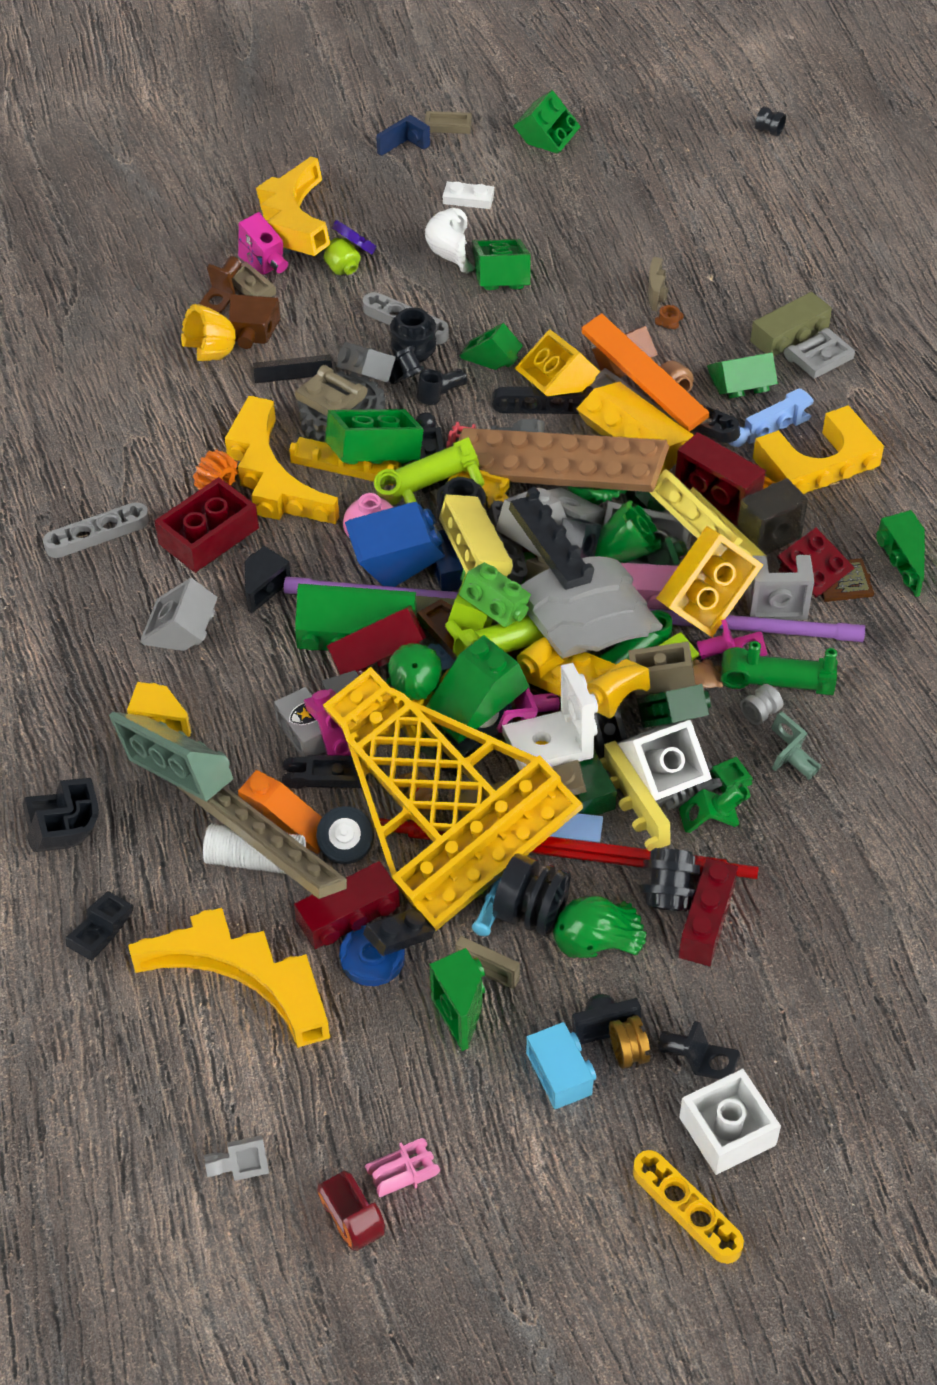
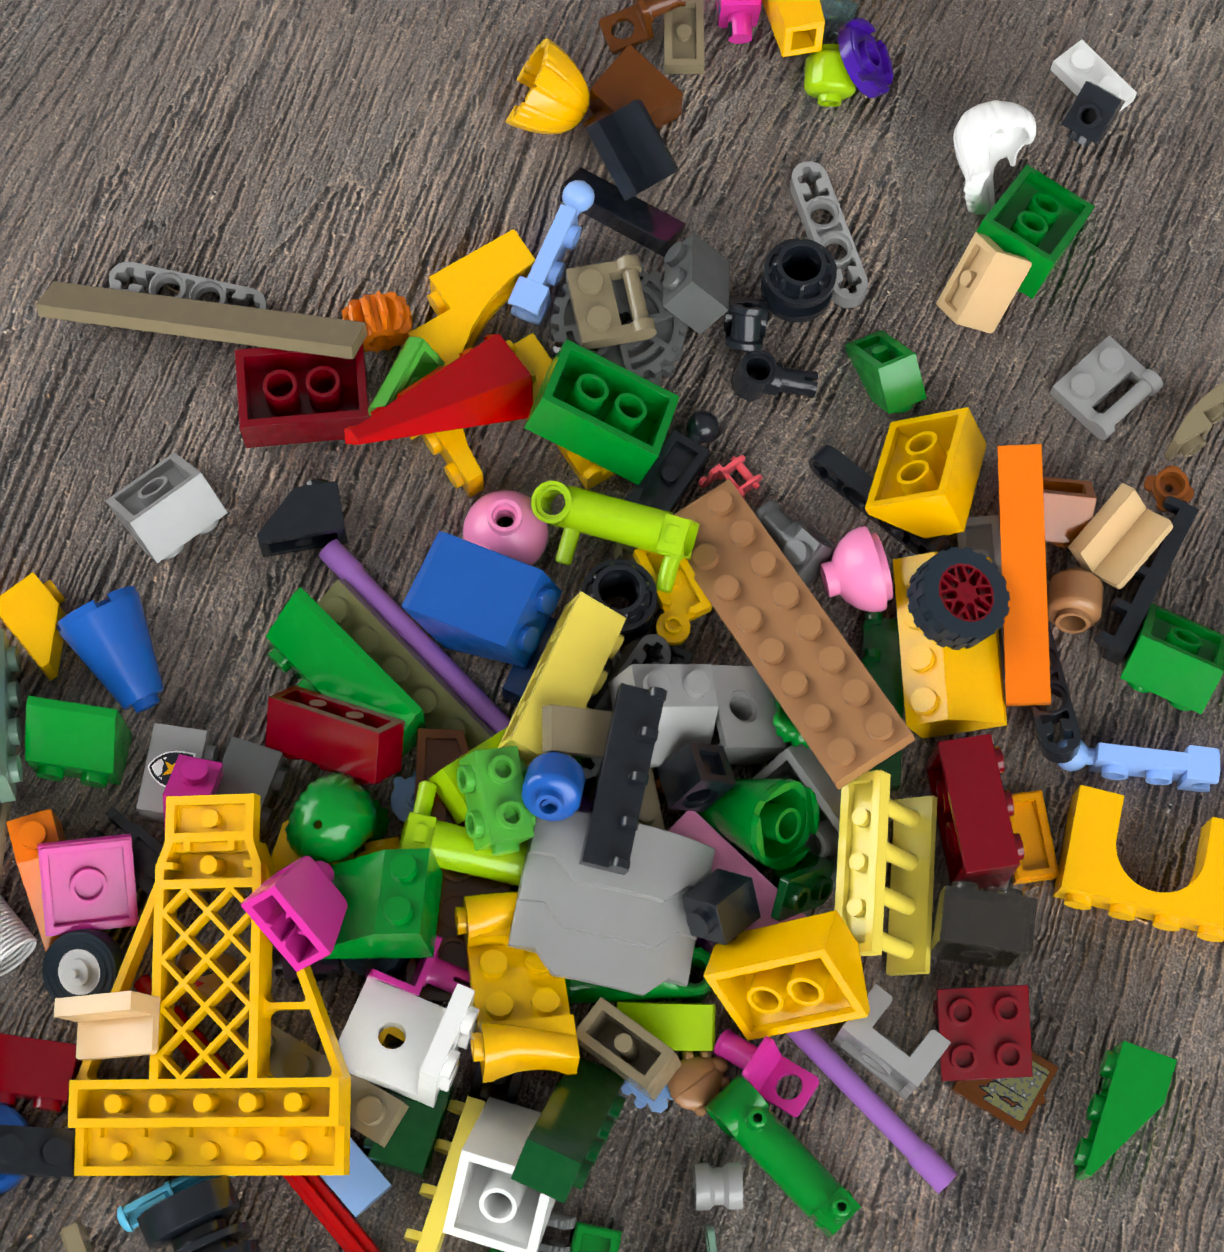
camera: 35 degrees right, 20 degrees up
(118, 524) = (202, 319): none -> dark tan tile
(217, 687) = (116, 647): none -> blue cone
(239, 733) = (76, 742): none -> green slope
(262, 481) = (411, 365): none -> bright green brick
(276, 331) = (632, 149): none -> black panel
(283, 415) = (532, 294): none -> light blue plate
(295, 467) = (475, 390): none -> red wedge
(309, 790) = (88, 884): none -> tile
(391, 827) = (112, 1024): none -> tan panel
(446, 699) = (299, 911): none -> dark pink torso
(484, 201) = (1092, 114): none -> black brick
(502, 287) = (982, 285): none -> tan panel
(508, 542) = (574, 730): none -> dark tan tile
(520, 564) = (555, 783): none -> blue head
(567, 416) = (859, 571): none -> bright pink piece
(591, 298) = (1096, 378): none -> light grey plate
(625, 395) = (958, 598): none -> black wheel
(647, 576) = (721, 906): none -> black brick
(670, 340) = (1119, 538): none -> tan panel
(700, 353) = (1150, 581): none -> black hinge

